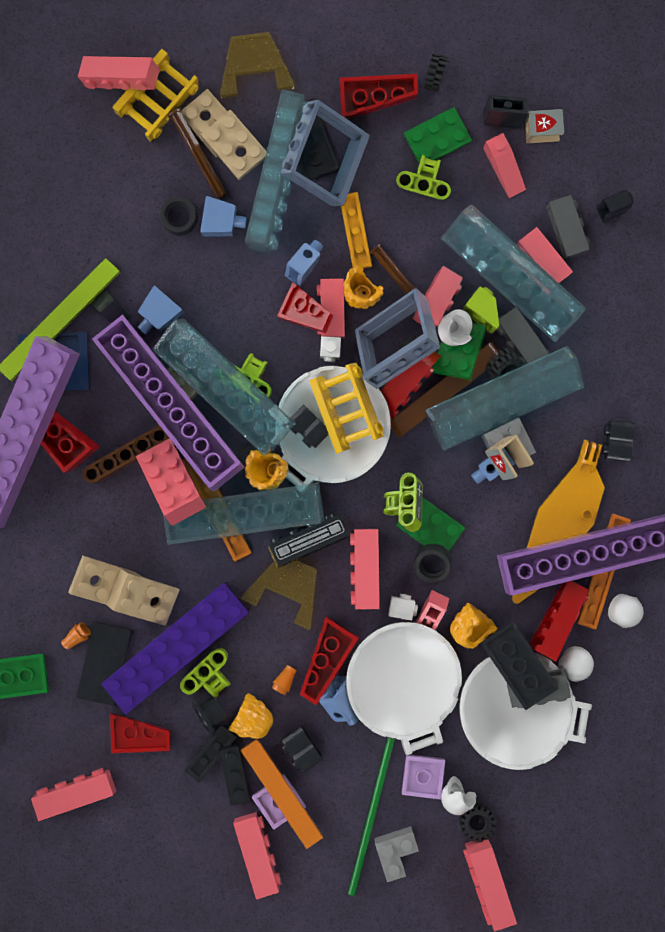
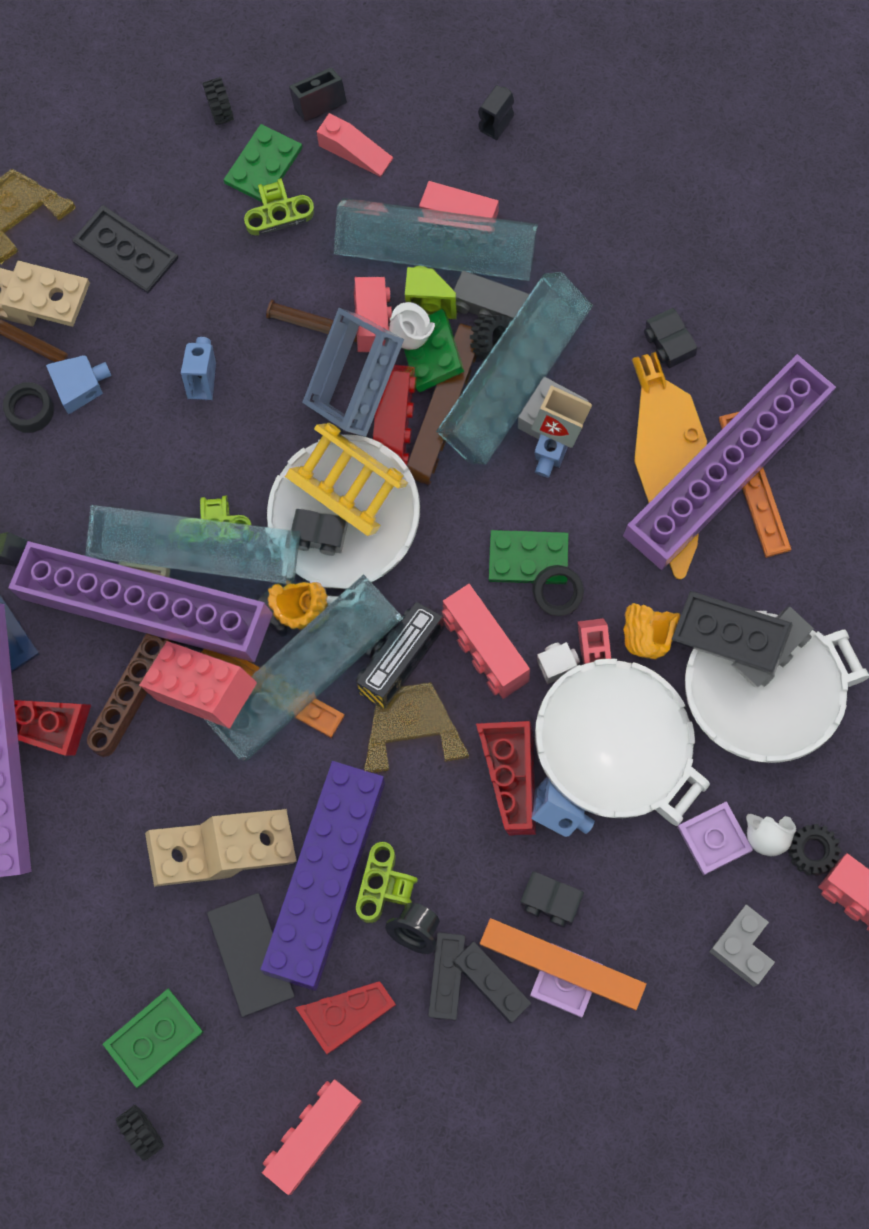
camera: 20 degrees left, 15 degrees down
(76, 635) = (196, 941): orange cone -> none
(158, 311) = (66, 517): medium blue torso -> none
(252, 719) = (469, 901): light orange hair -> none
(256, 855) = (583, 1062): coral brick -> none
(273, 186) = (112, 295): clear light blue brick -> none
(284, 680) = (478, 835): orange cone -> none
(304, 310) = (232, 415): wing -> none
(330, 348) = (287, 437): white brick -> none
(333, 301) = (262, 398): coral brick -> none
(350, 161) = (185, 241): sand blue window -> none
(355, 284) = (278, 359): light orange hair -> none
(356, 232) = (236, 307): light orange tile -> none
(371, 816) = (687, 926): green piece -> none
(375, 93) = (166, 158): red wedge -> none
(398, 502) = (482, 544): lime beam -> none
(544, 126) = (368, 84): piece -> none
(559, 619) = (742, 558): red wedge -> none
(568, 227) = (462, 164): dark grey brick -> none
(577, 663) = (799, 594): white helmet -> none
(625, 611) = (808, 507): white helmet -> none

